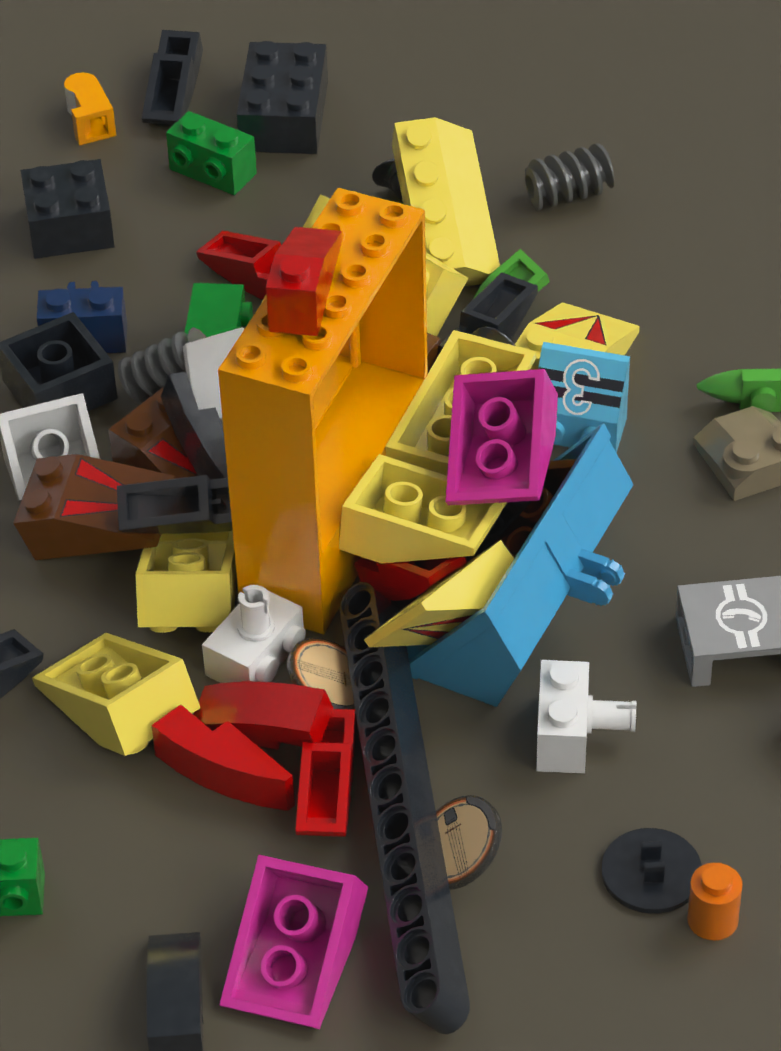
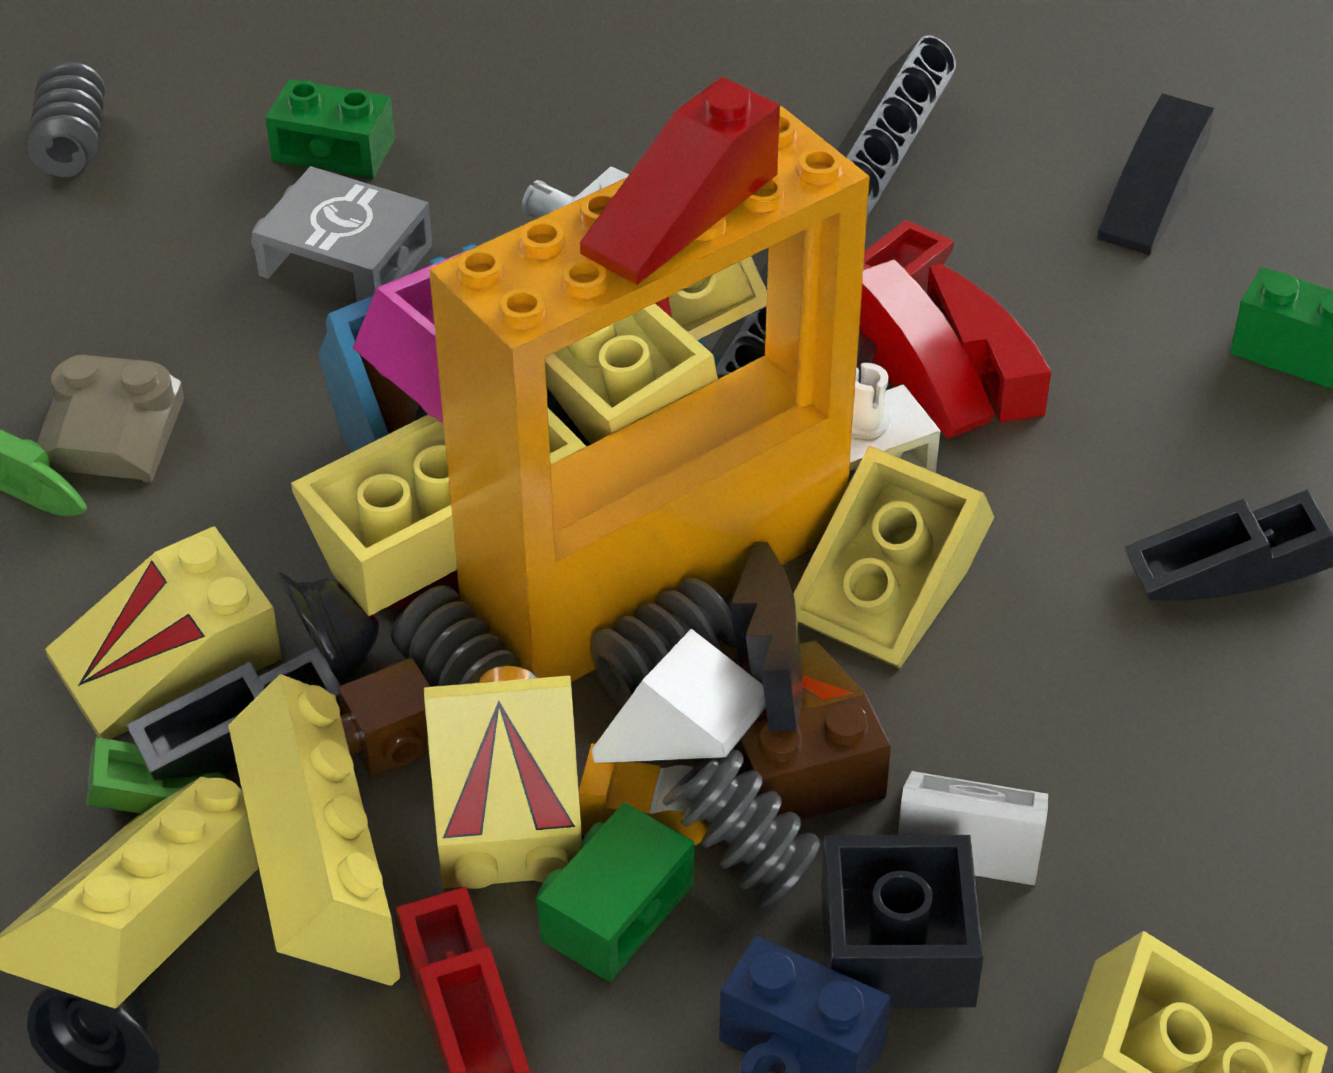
camera: 150 degrees left, 0 degrees up
(74, 507) = (967, 670): reddish brown slope -> none
(118, 690) = (1061, 461): light yellow slope -> none
(175, 506) = (851, 549): black slope -> none
(293, 941) = (1007, 171): dark pink slope -> none
(589, 390) = (252, 520): medium azure slope -> none
(650, 870) = (624, 118): black piece -> none
(714, 901) = (609, 46): orange brick -> none

